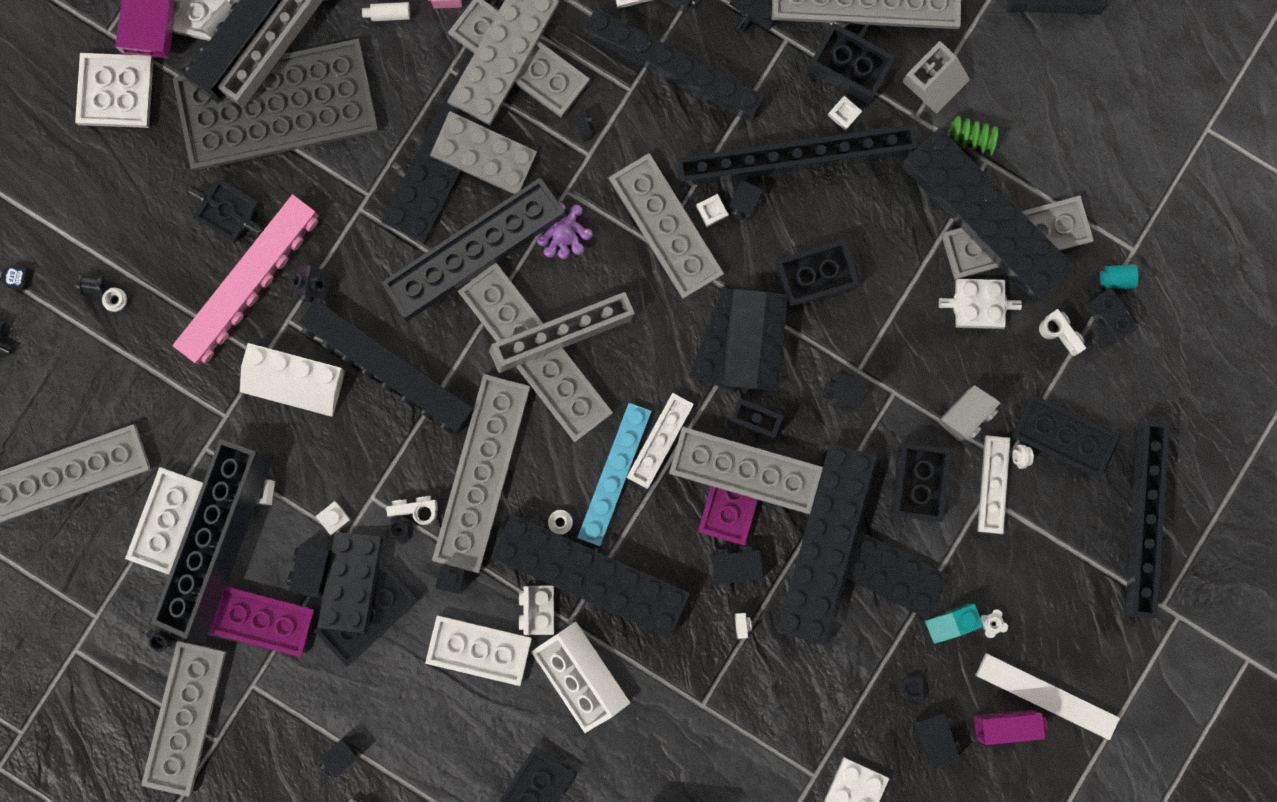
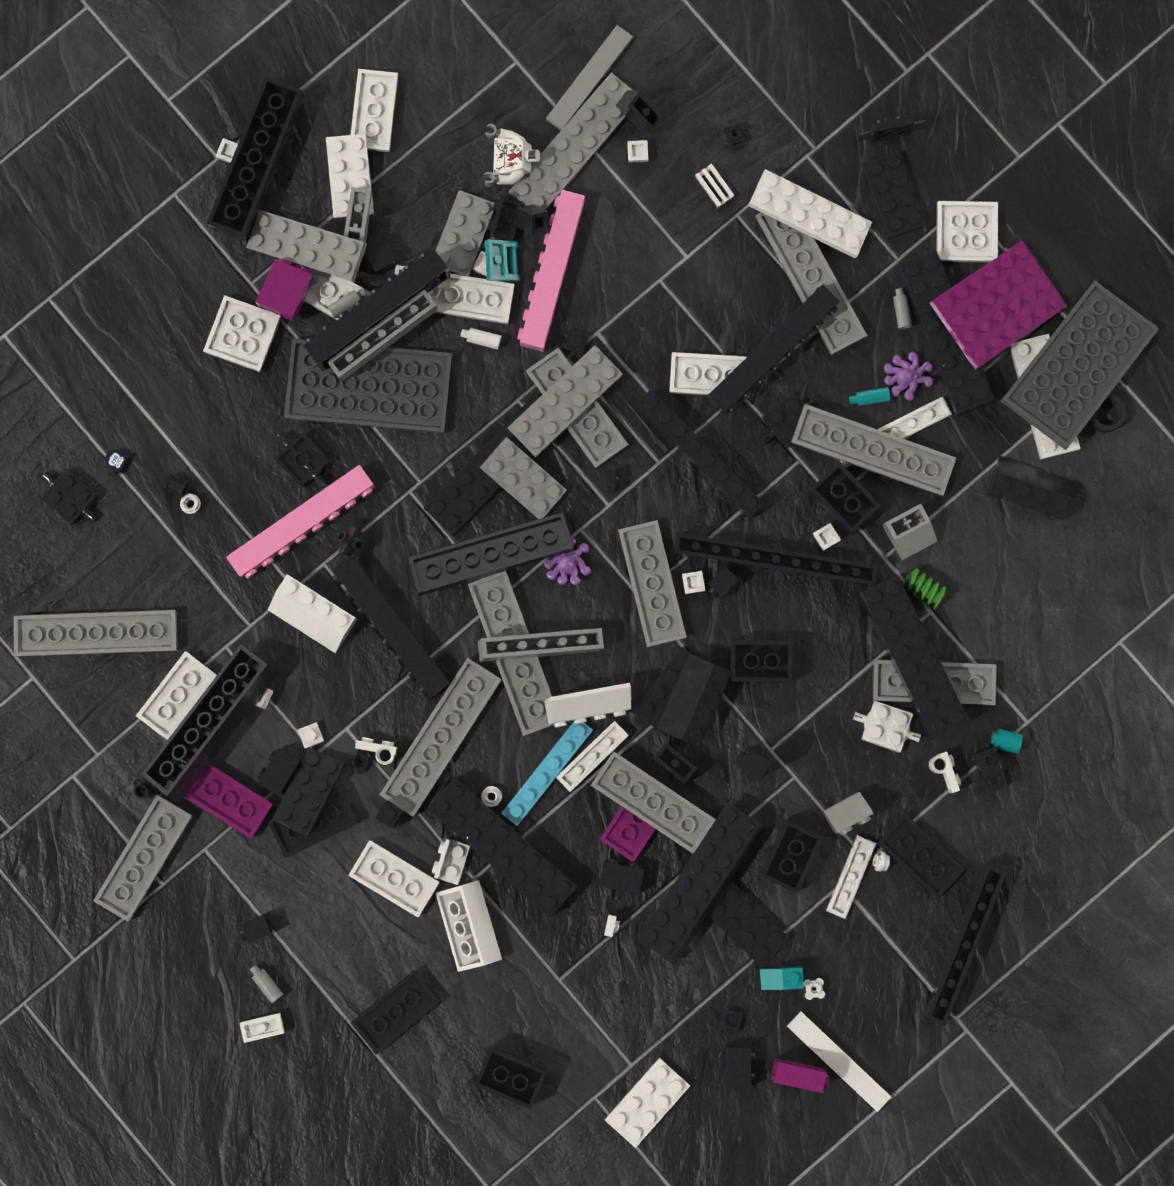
camera: 20 degrees right, 0 degrees up
(637, 382) = (588, 704): none -> white slope

